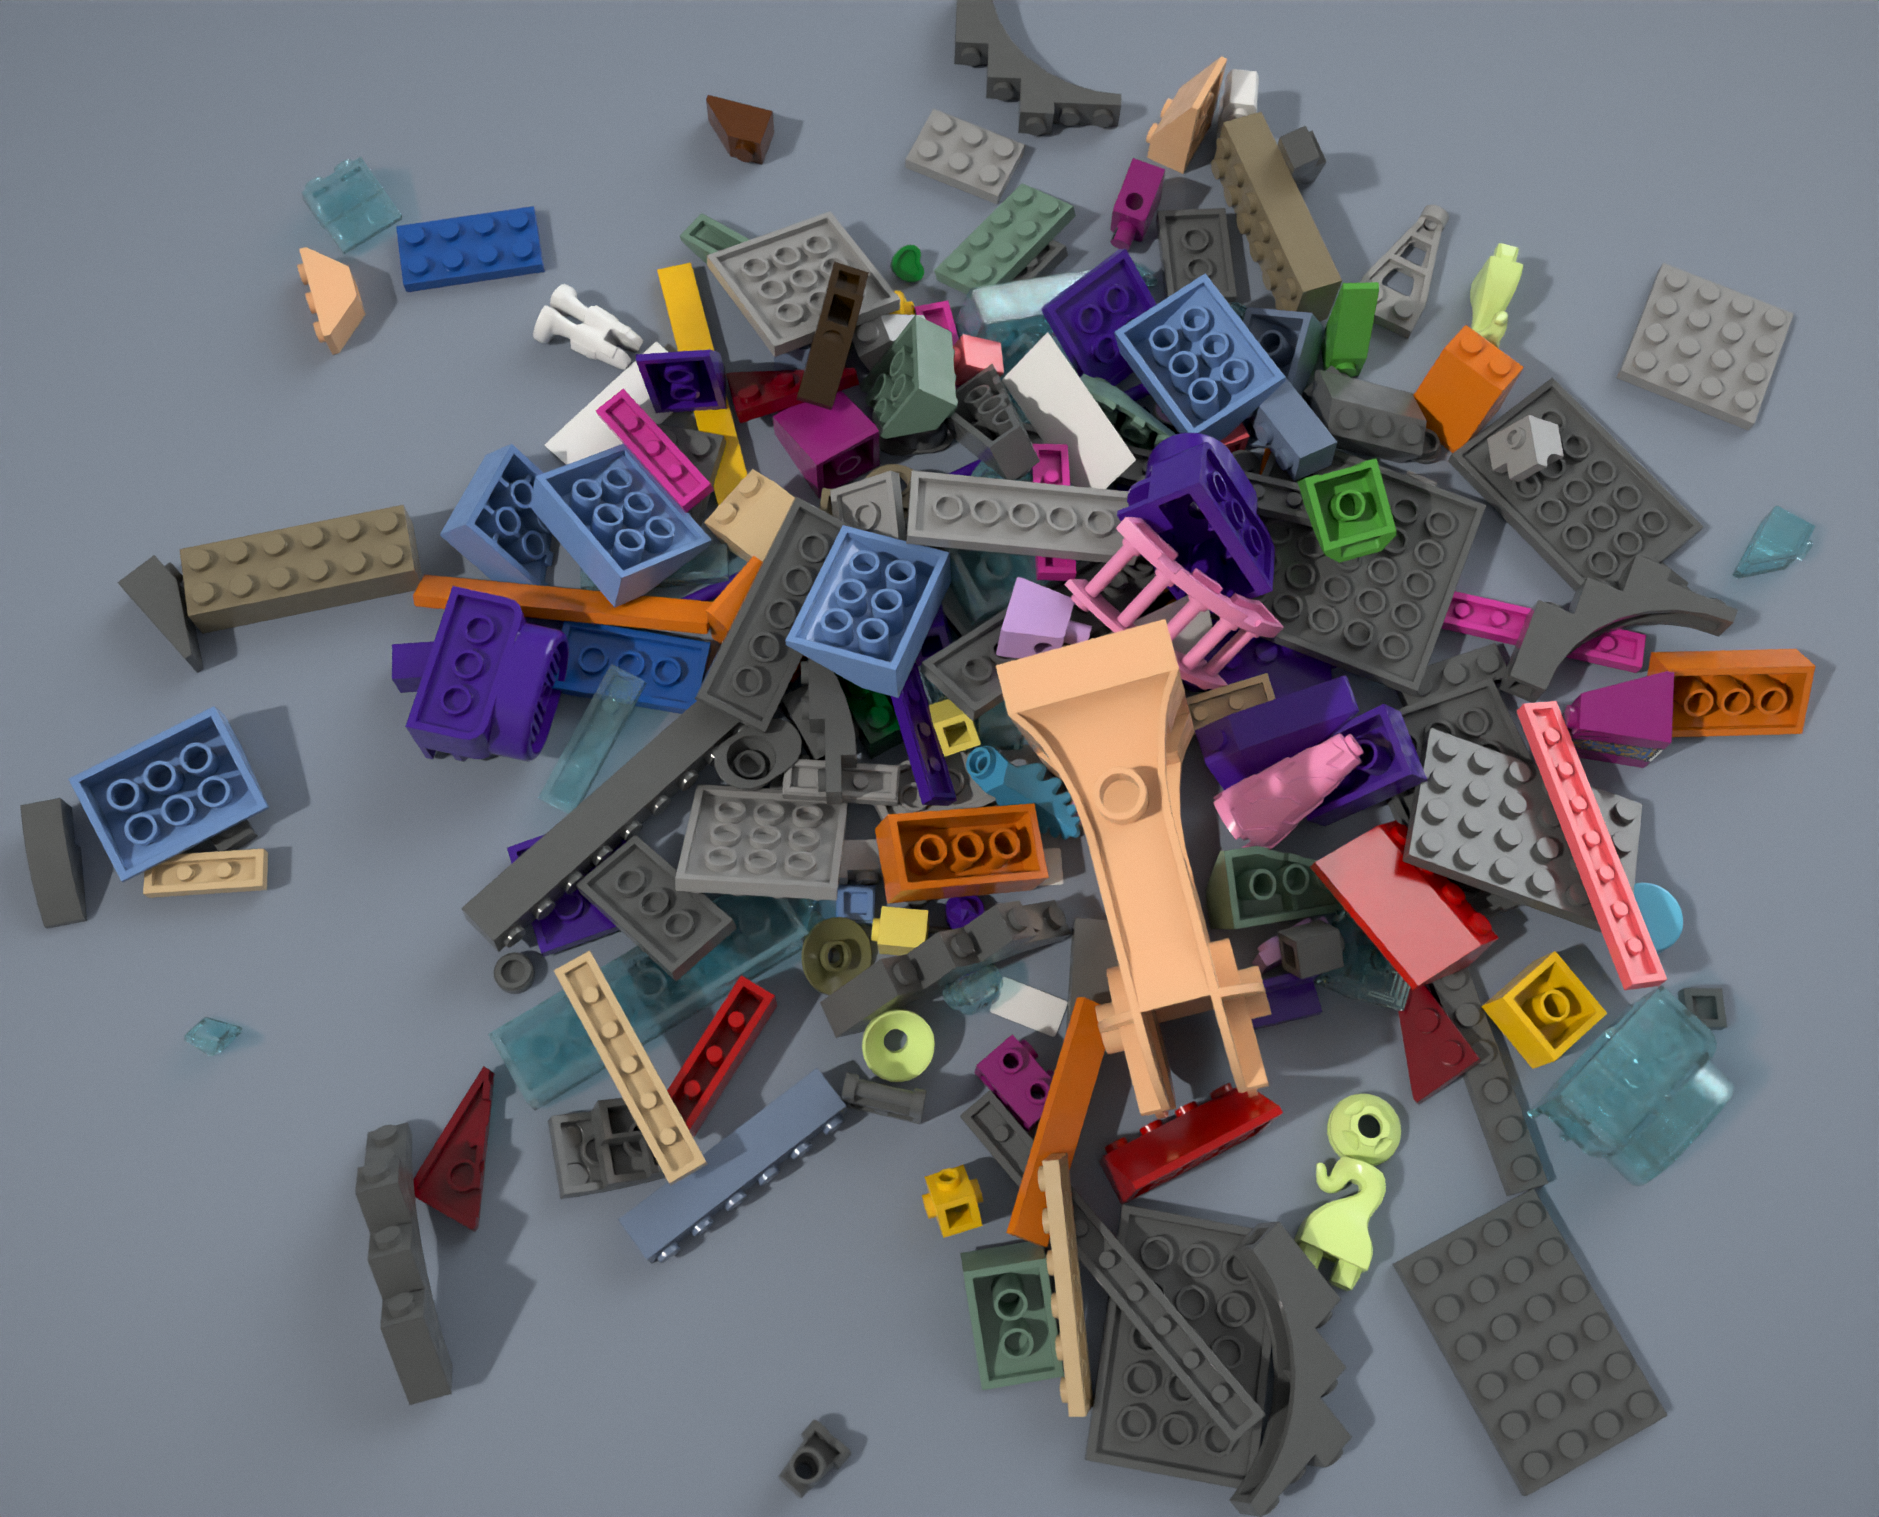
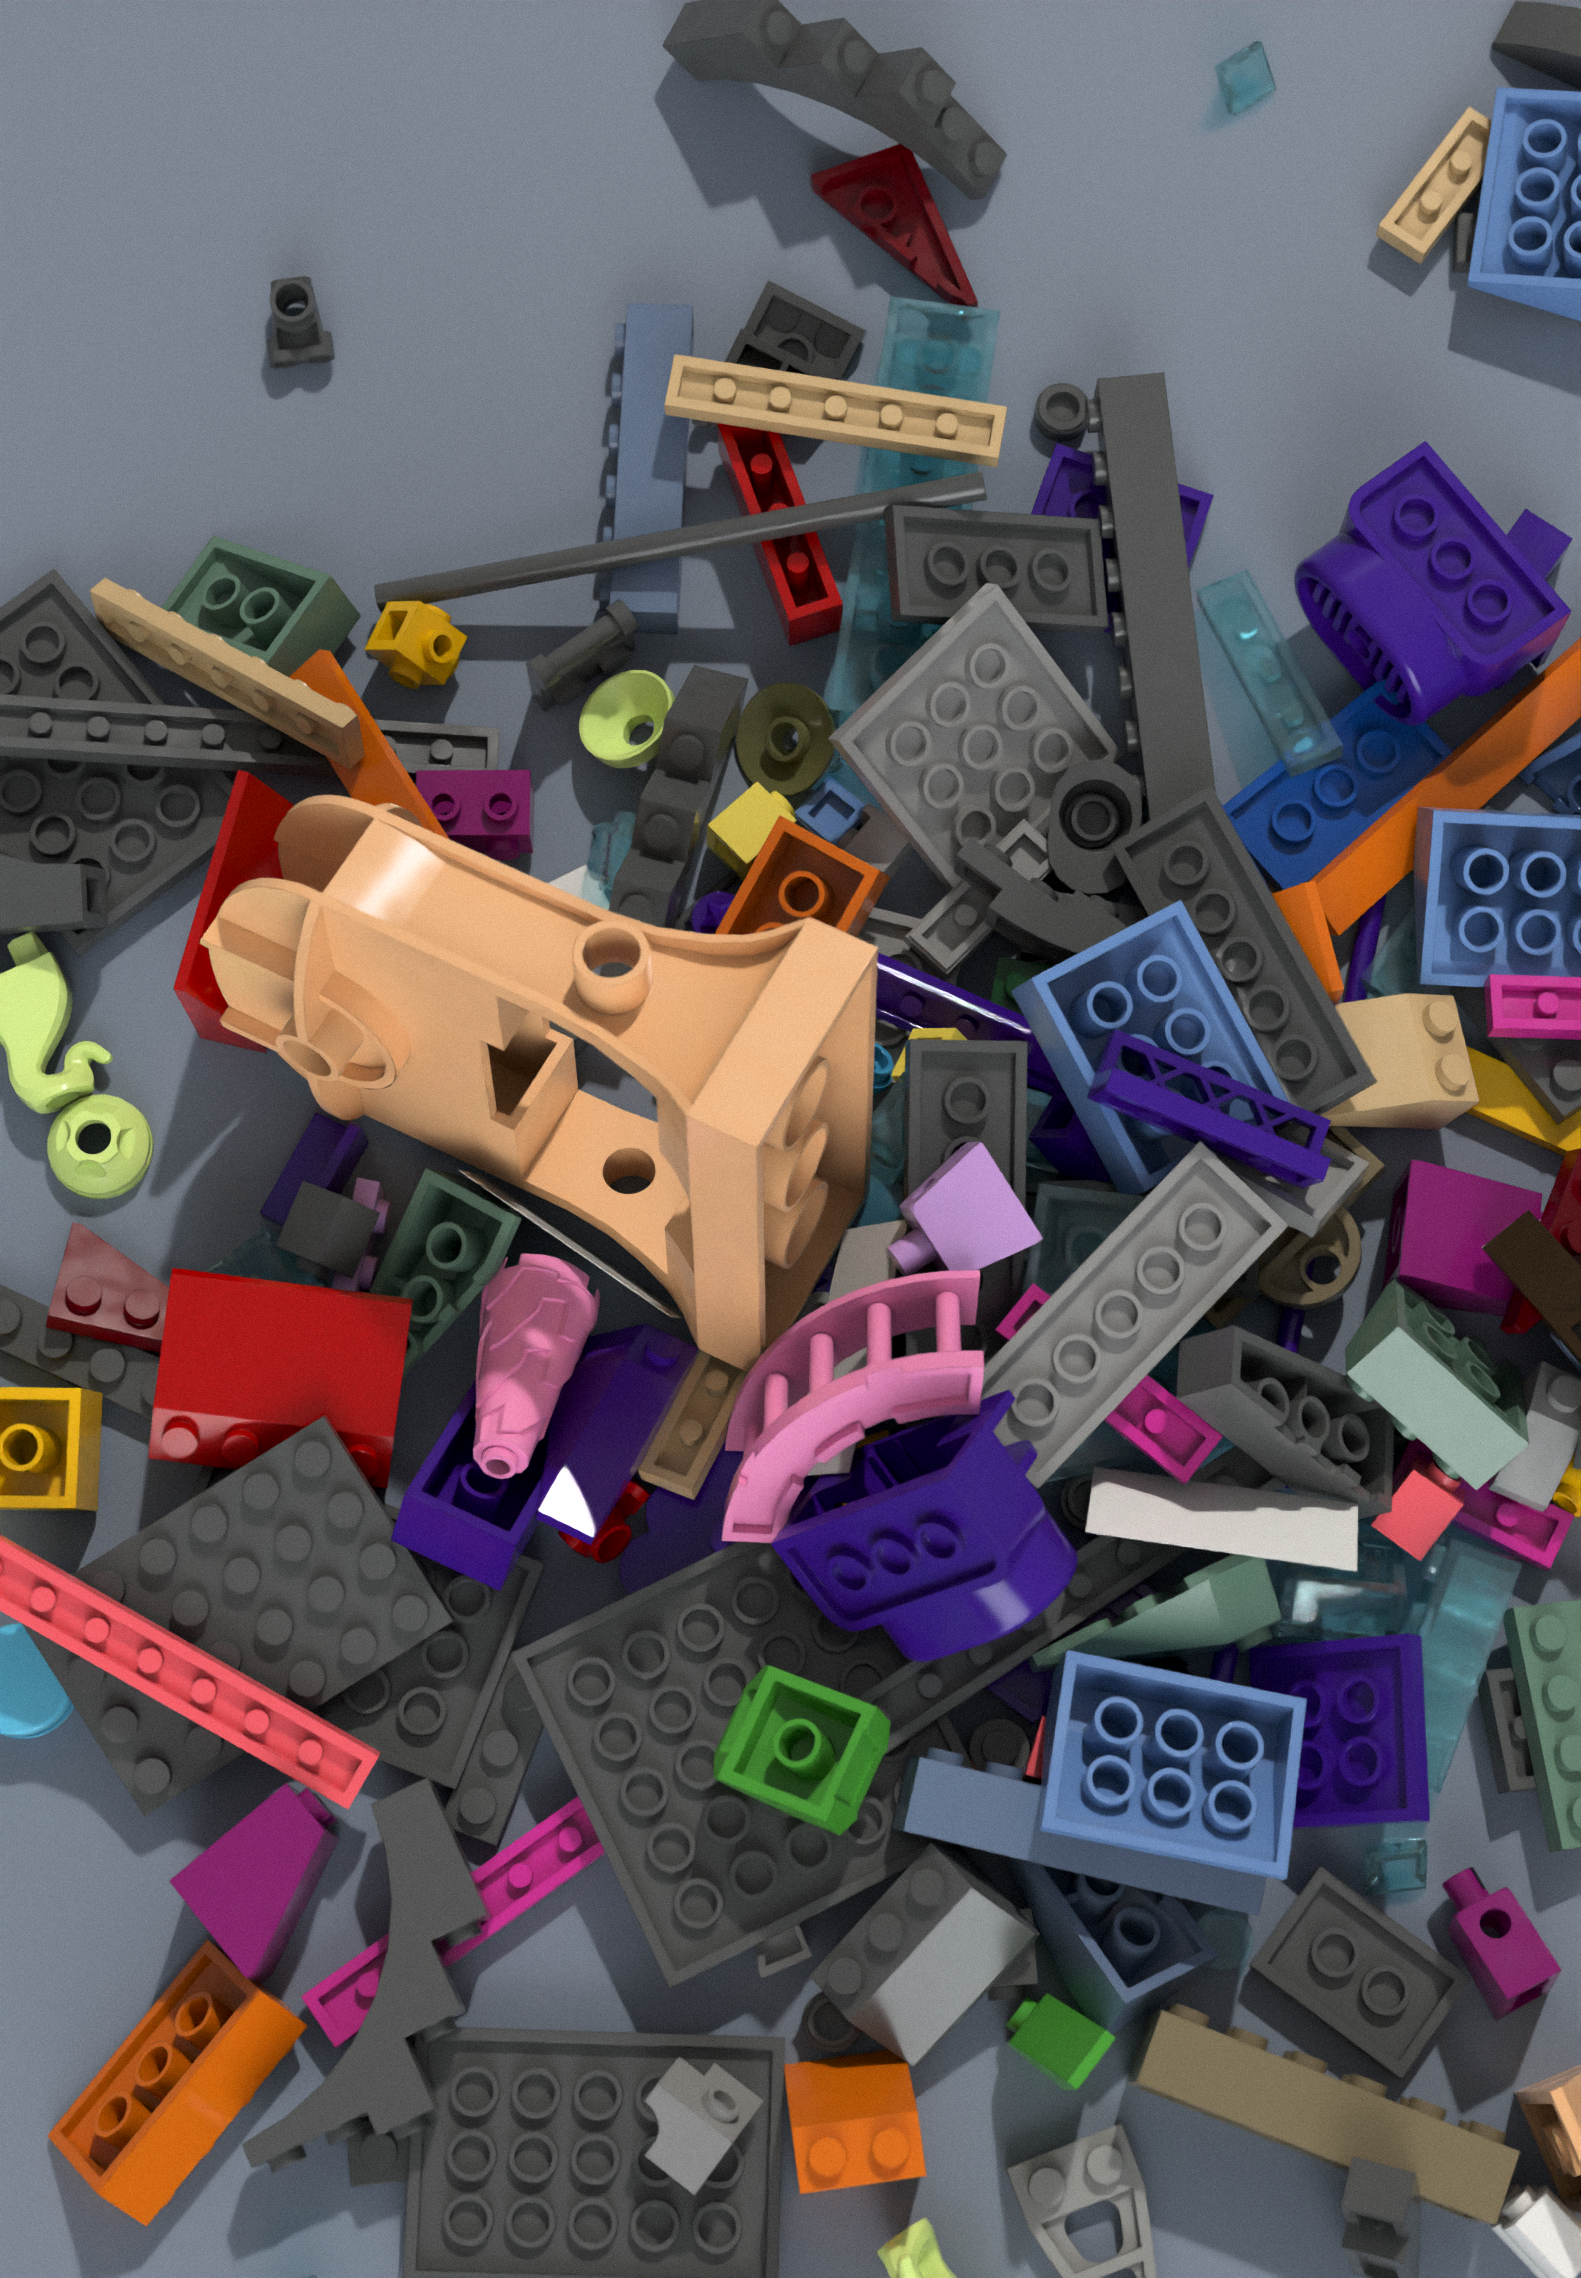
camera: 135 degrees right, 5 degrees up
(779, 1094) = (680, 541): none -> dark grey piece
(894, 539) = (1205, 1122): none -> dark purple fence
(1201, 830) = (575, 1244): none -> white sticker

